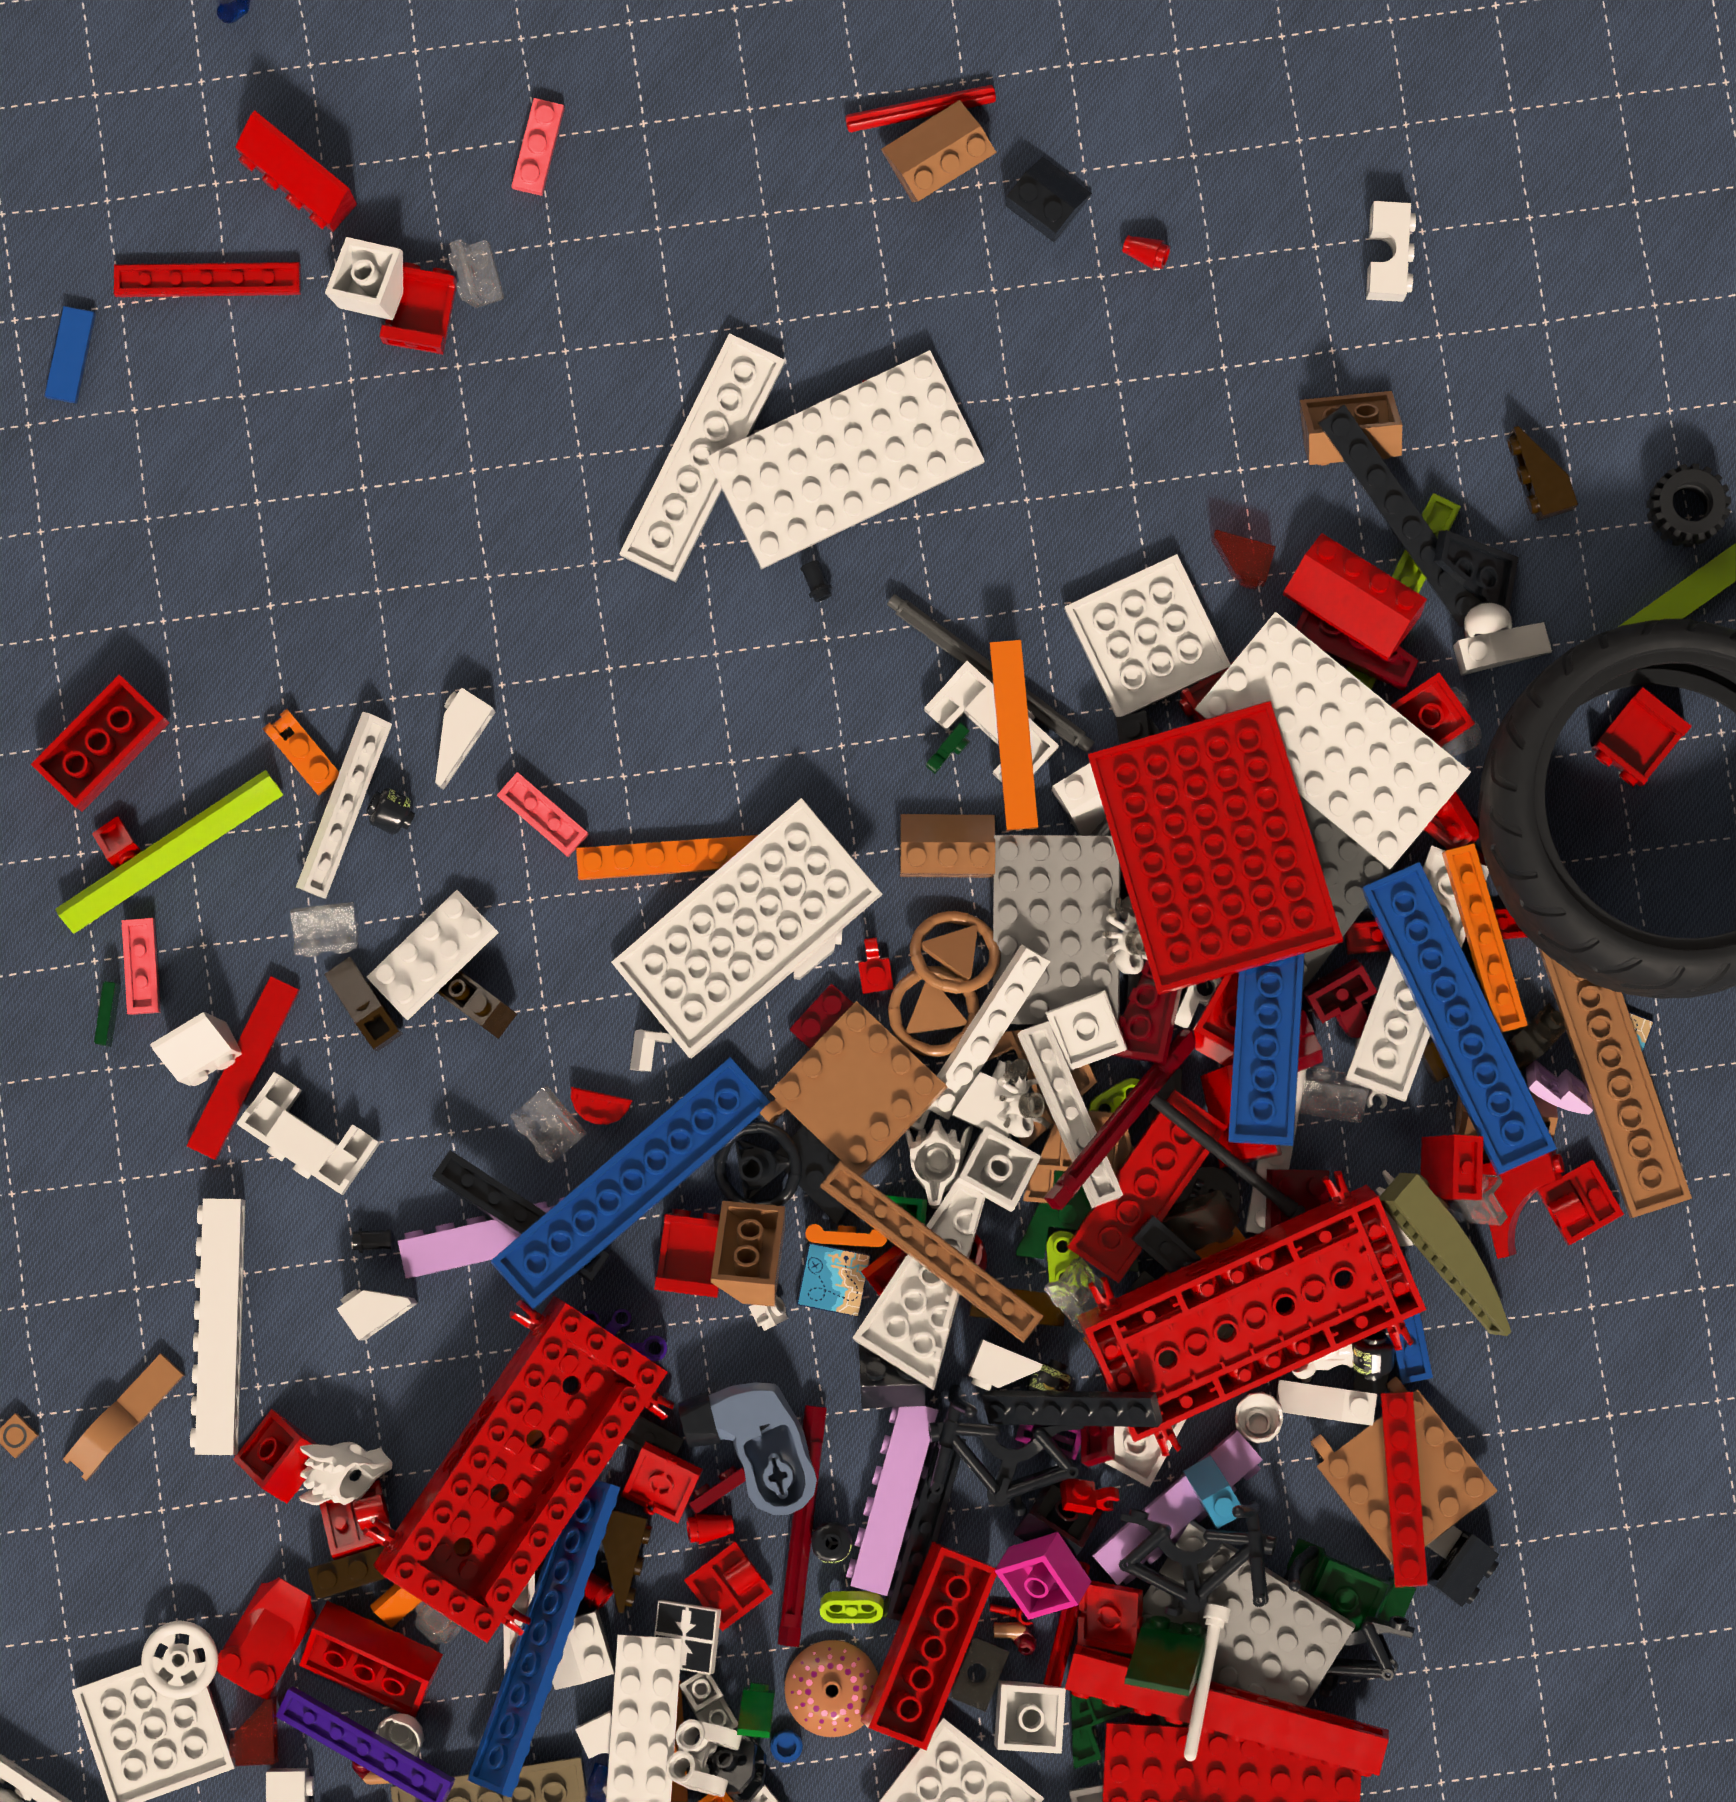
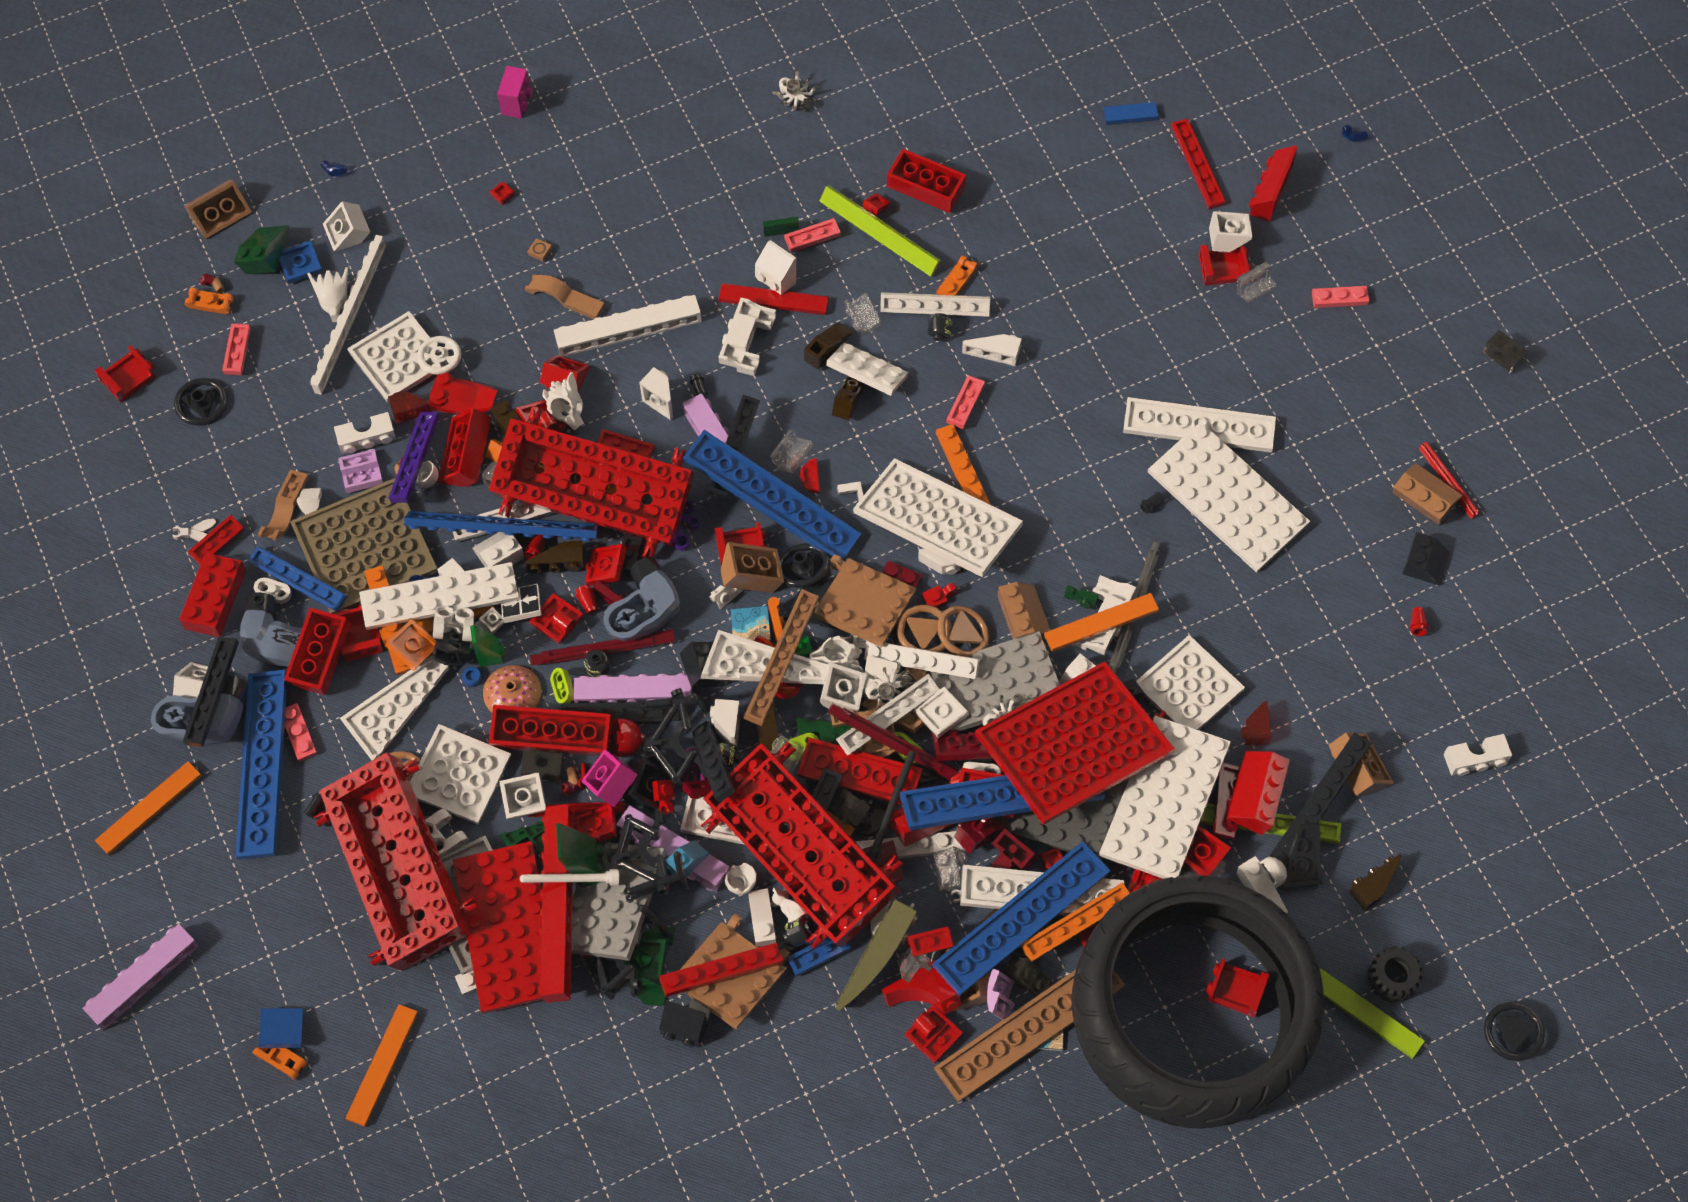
camera: 75 degrees right, 20 degrees down
(444, 1391) = (626, 443): none -> red tile
(975, 1530) = (626, 738): none -> red cylinder

